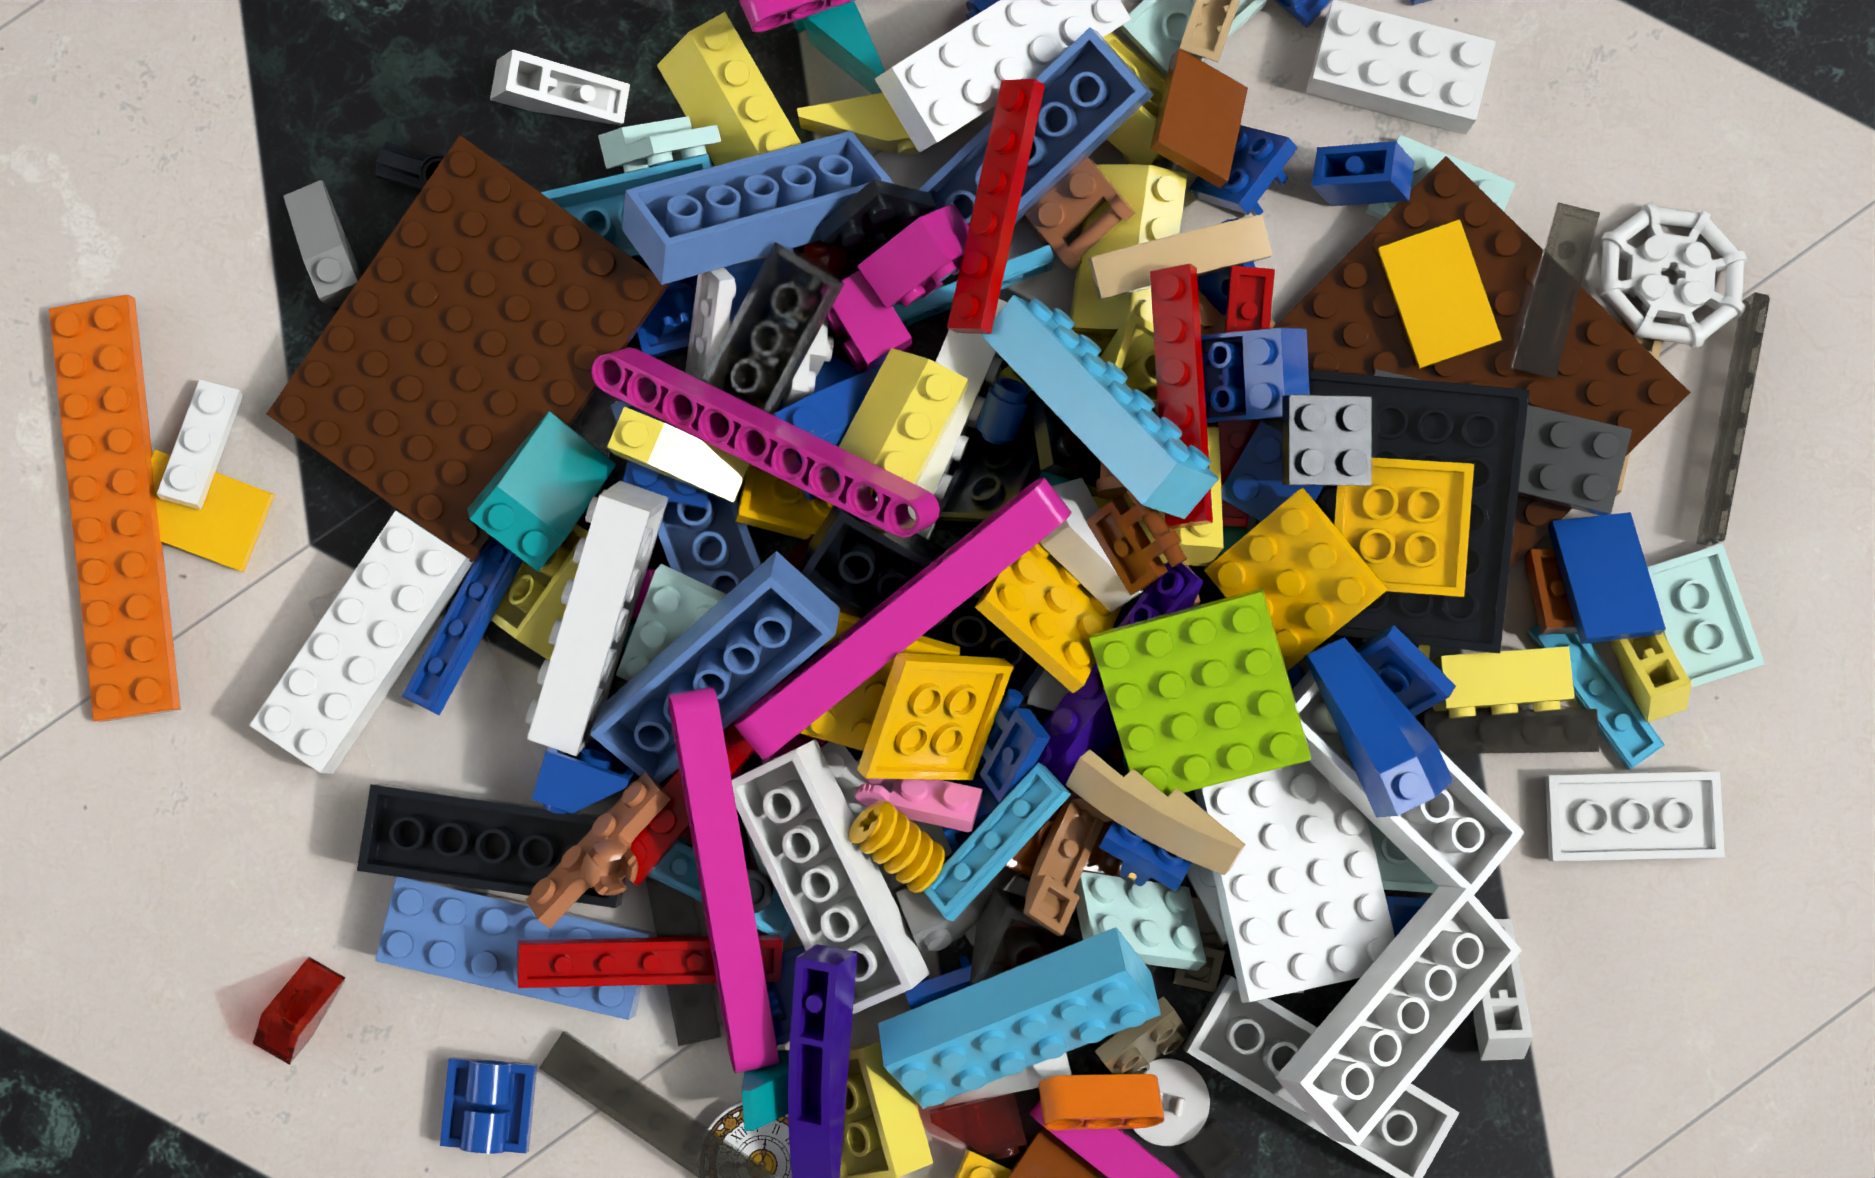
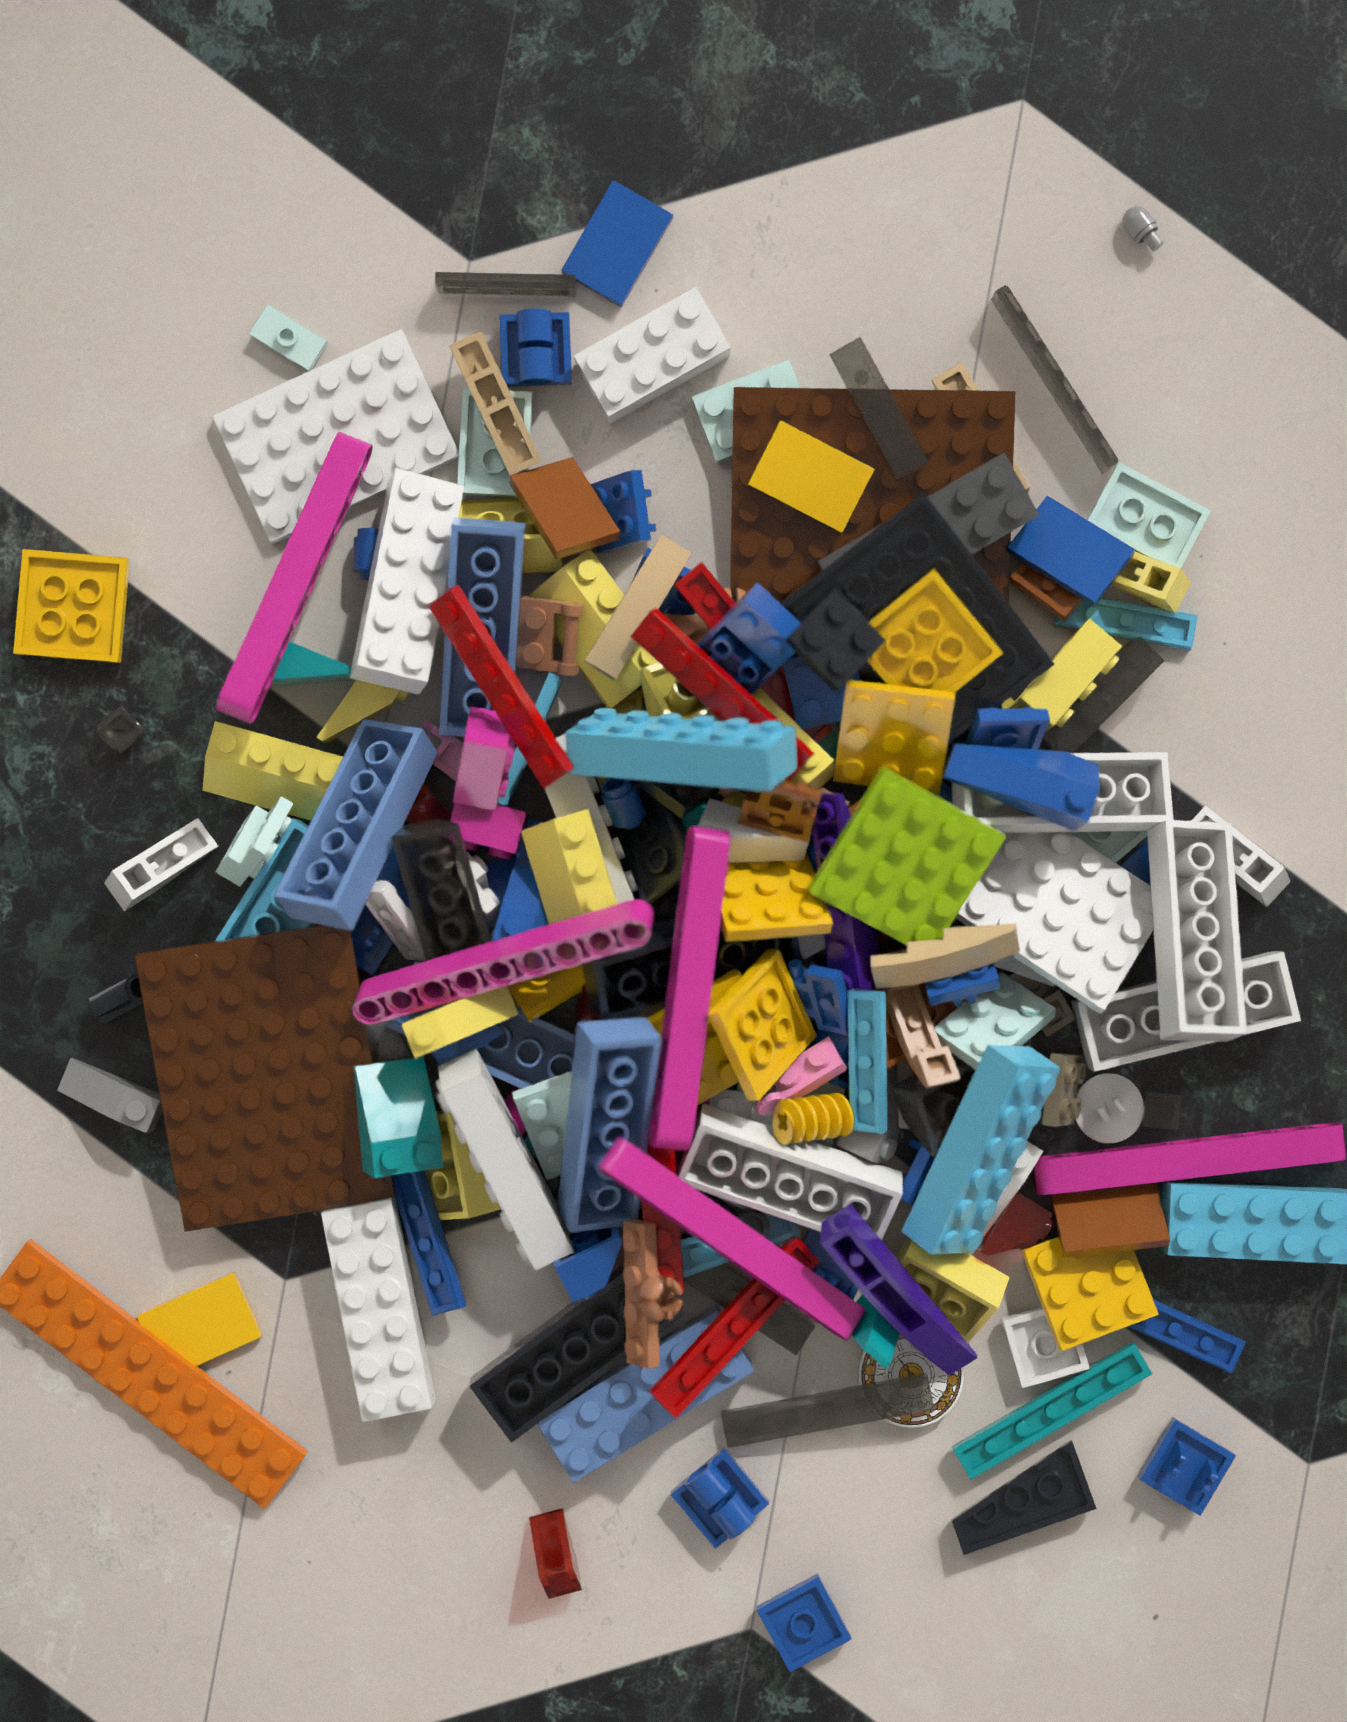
camera: 50 degrees left, 5 degrees up
(200, 444) = (161, 1287): white plate -> none
(875, 216) = (434, 760): black plate -> none
(1101, 1102) = (1072, 1148): orange beam -> none
(1363, 173) = (694, 445): blue brick -> none
(1634, 816) = (1220, 675): white plate -> none
(1688, 259) = (936, 306): white plate -> none

